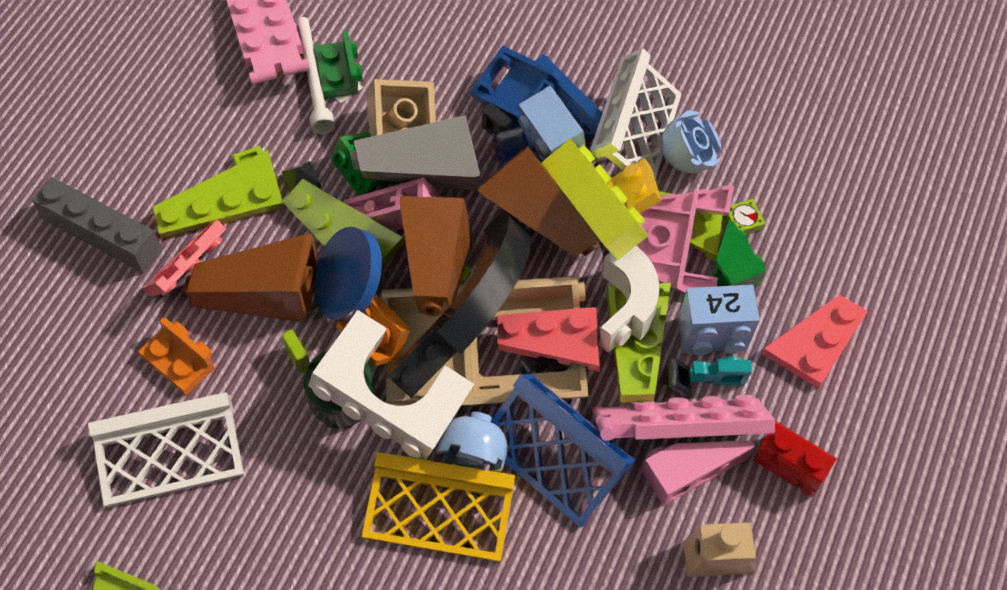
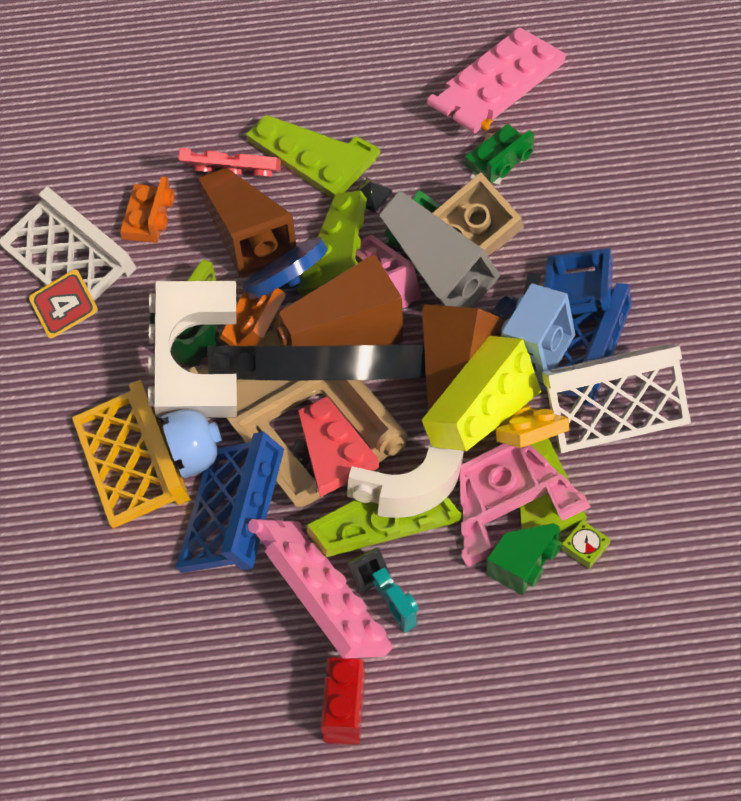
camera: 65 degrees right, 5 degrees down
(97, 224) = (222, 92): dark grey brick -> none
(225, 481) = (63, 303): none -> sticker
(321, 118) = (438, 171): white piece -> none
(689, 465) = (277, 616): bright pink slope -> none
(690, 143) = (624, 451): light blue cylinder -> none
(718, 319) = (439, 564): light blue brick -> none
(723, 550) = (210, 677): tan torso -> none
(817, 341) = (494, 671): coral wing -> none

